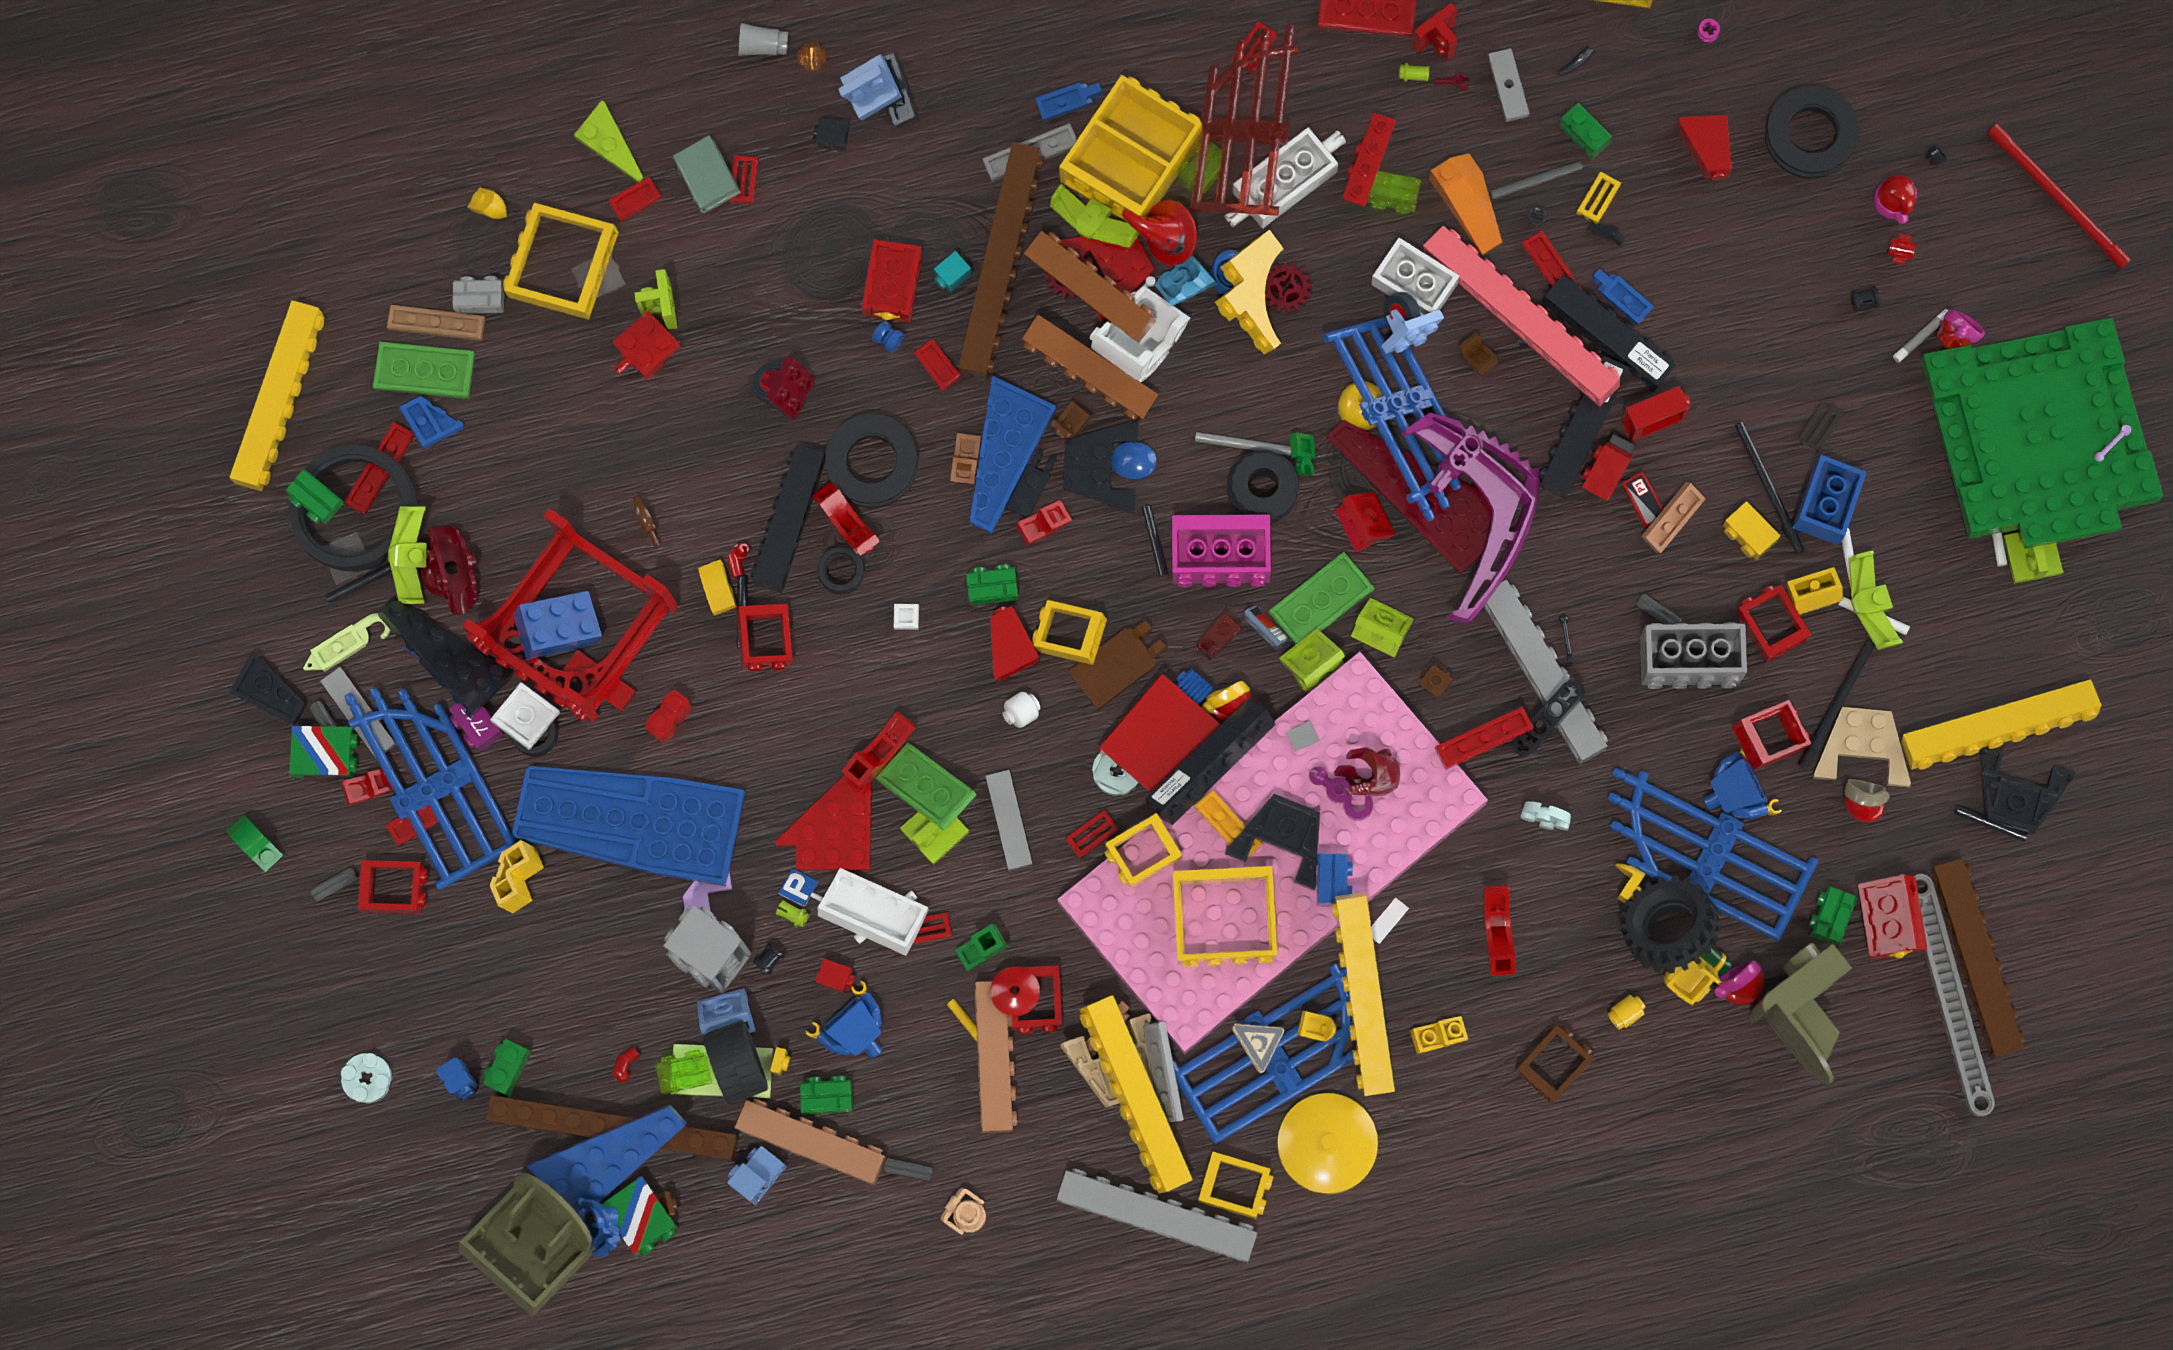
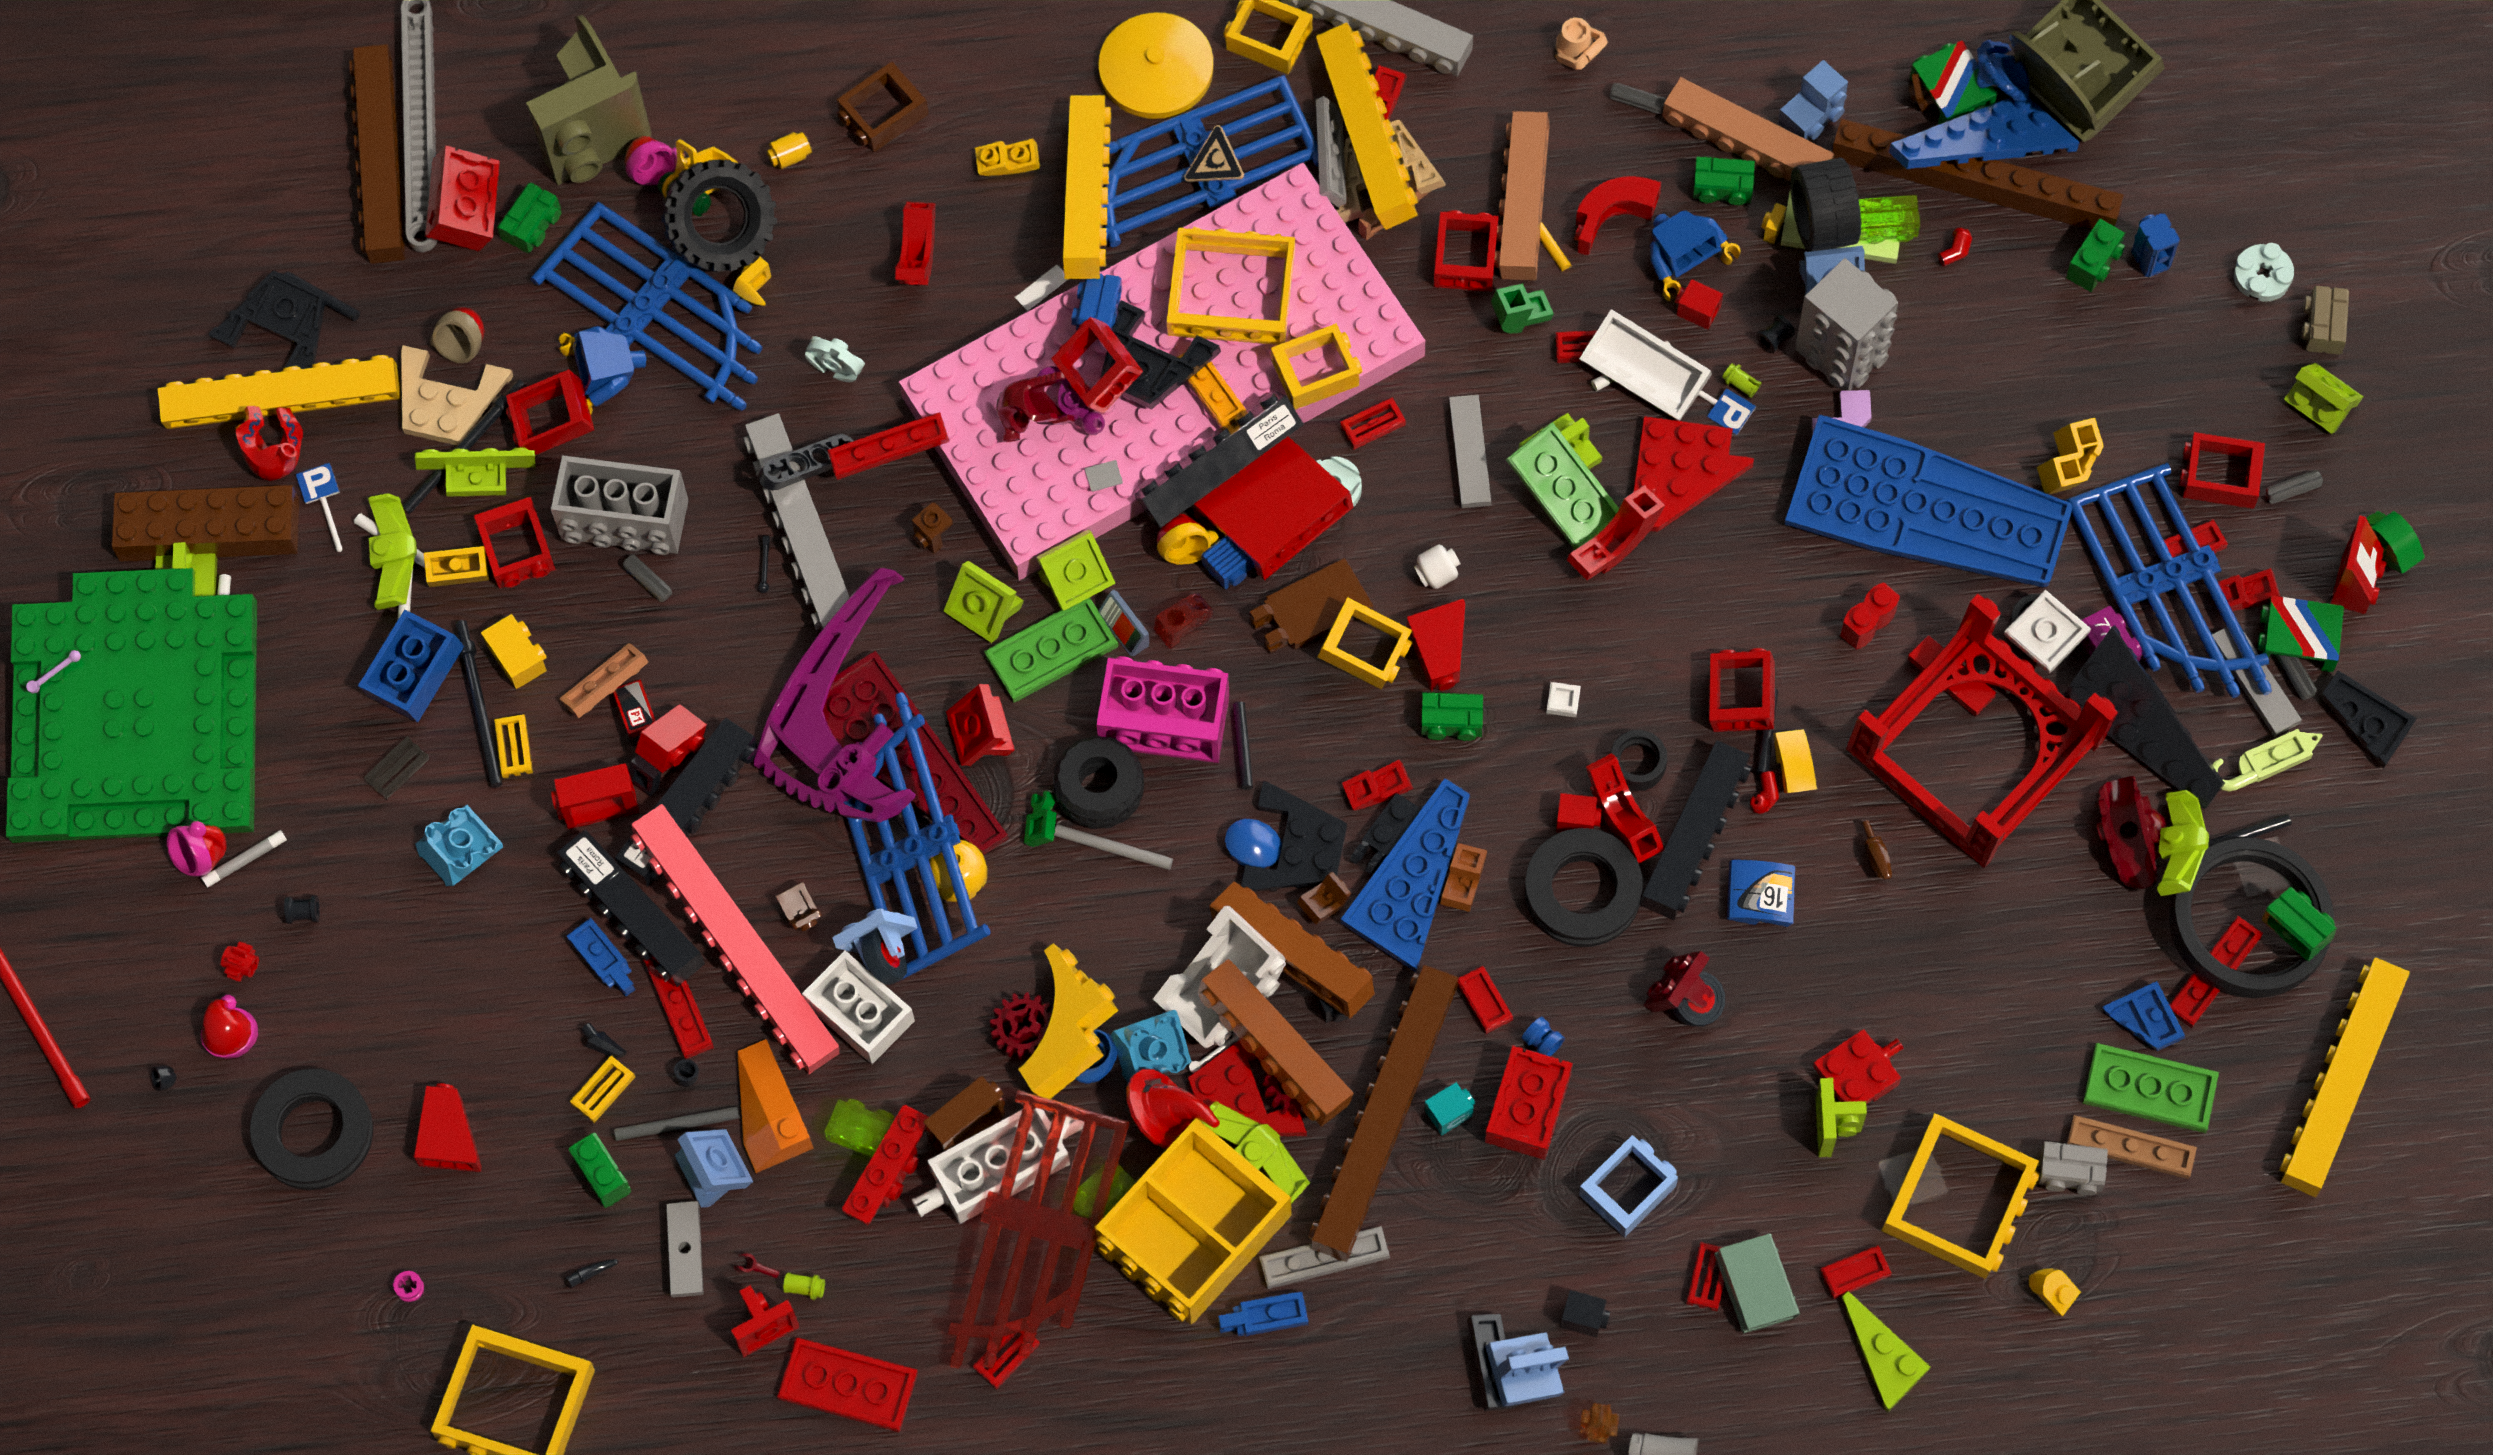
camera: 175 degrees left, 10 degrees down
(279, 806) = (2359, 569): none -> red slope
(310, 966) = (2322, 397): none -> lime bracket
(312, 1036) = (2326, 320): none -> dark tan brick
(557, 625) = (1999, 732): brick -> none
(733, 478) = (1761, 892): none -> blue slope
(823, 214) = (1608, 1208): none -> light blue window
(882, 518) = (1577, 812): none -> red brick
(914, 1068) = (1614, 197): none -> red arch
(1015, 1004) = (1489, 262): red dish -> none
(1124, 1149) = (1390, 86): none -> red slope
(1312, 828) = (1114, 381): none -> red window
(1316, 204) = (965, 1115): none -> reddish brown window
(1316, 1026) = (1145, 171): yellow plate -> none
(1500, 147) = (711, 1165): none -> medium blue bracket
(1739, 475) = (516, 769): none -> yellow tile
(1755, 369) = (457, 845): none -> dark azure slope
(1821, 676) = (475, 471): none -> lime bracket
(1947, 656) = (317, 485): none -> piece
(1993, 665) = (271, 461): none -> red piece
(2029, 602) = (208, 521): none -> reddish brown brick

